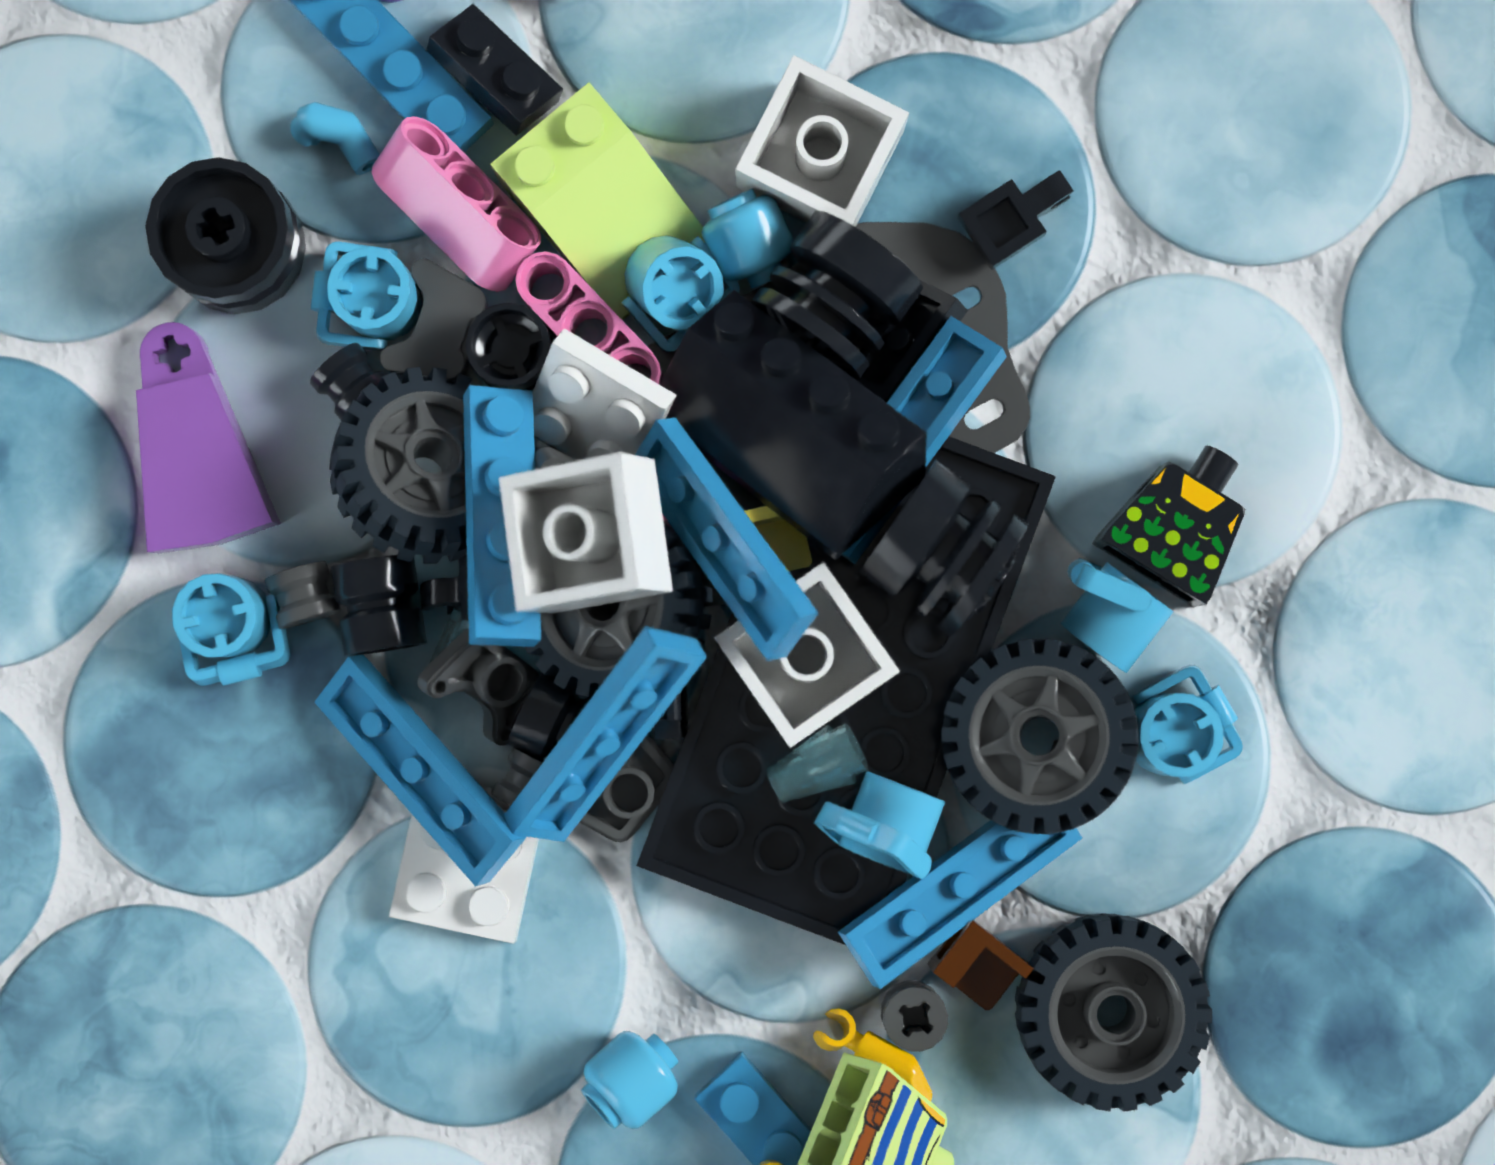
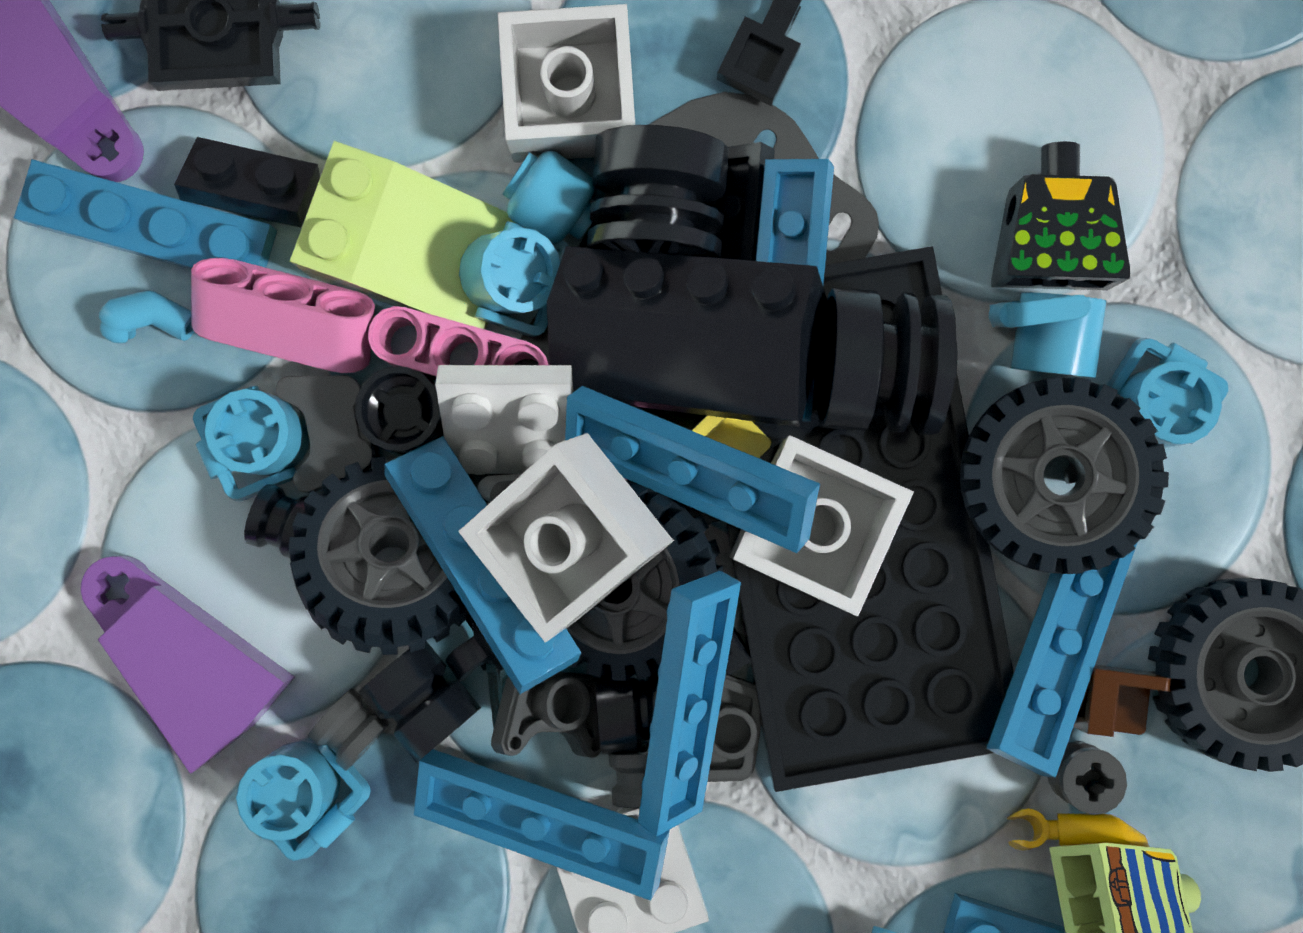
camera: 30 degrees left, 0 degrees up
(218, 200) = (96, 459): black wheel -> none
(819, 764) = (886, 613): clear light blue cone -> none
(886, 824) = (975, 630): medium azure piece -> none

